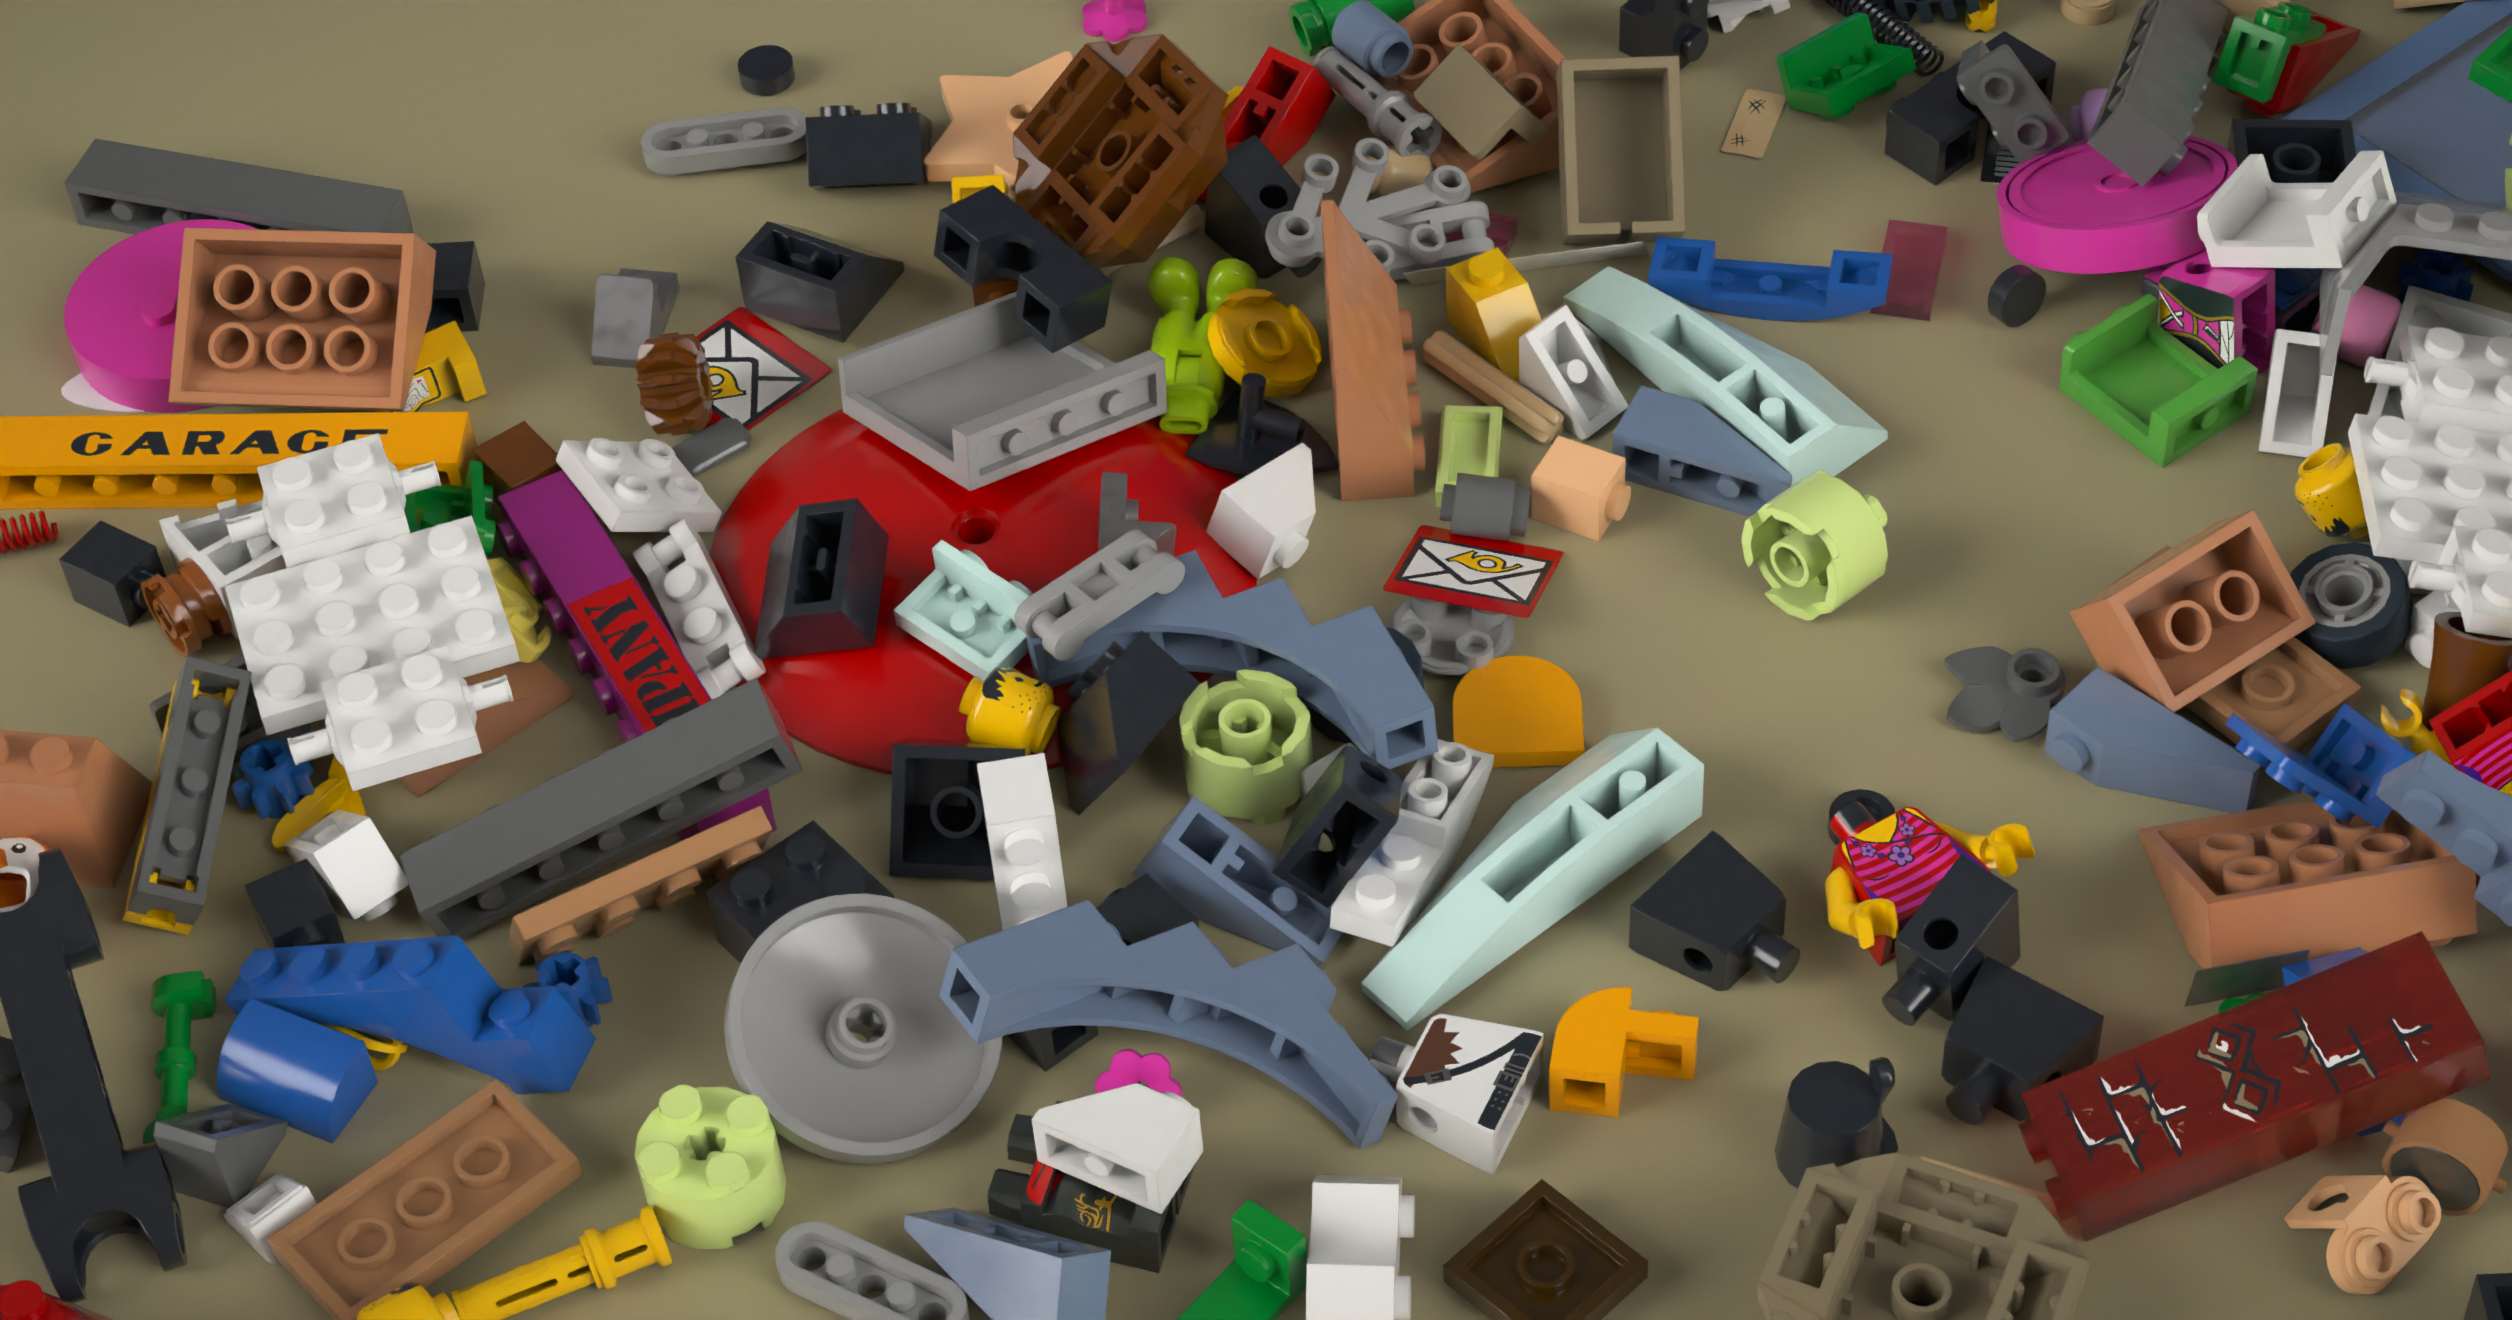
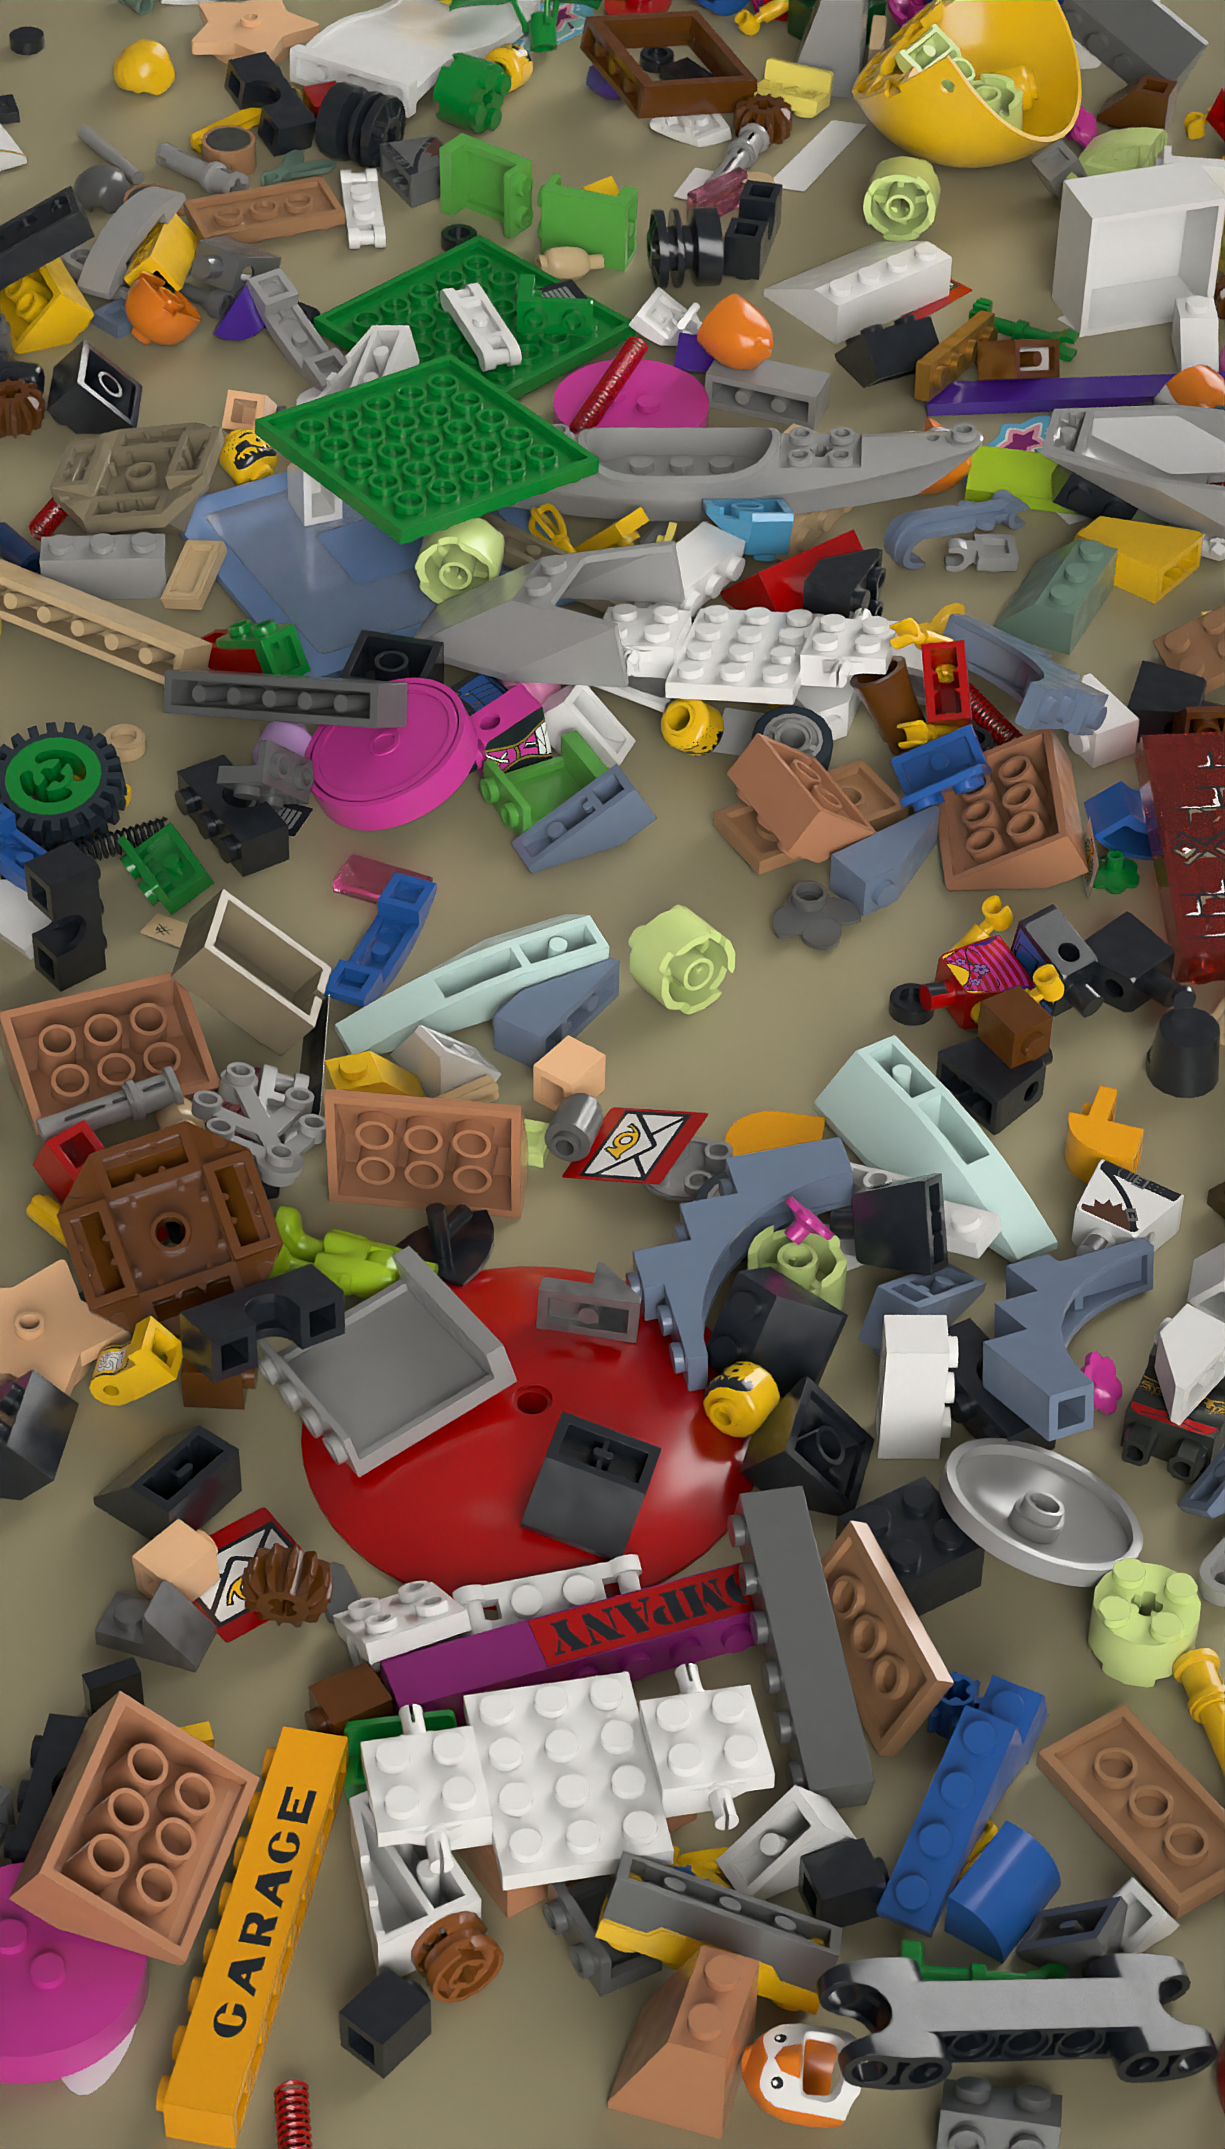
camera: 85 degrees left, 5 degrees down
(535, 294) = (107, 1681): none -> black tile
(708, 303) = (180, 1557): none -> light nougat brick
(966, 612) = (649, 1395): light aqua bracket -> none
(1097, 593) = (680, 1298): light grey plate -> none
(1264, 338) = (359, 1219): yellow tile -> none
(1267, 513) = (549, 1237): white slope -> none
(1283, 702) = (804, 1223): none -> dark pink plant
(1372, 39) = (49, 1090): sand blue brick -> none
(1476, 104) = (172, 1035): dark tan panel -> none
(1755, 889) = (1015, 1026): none -> reddish brown brick
(2016, 295) = (441, 833): black tile -> none
(2097, 428) = (587, 823): none -> sand blue slope
(2295, 224) = (494, 651): white panel -> none

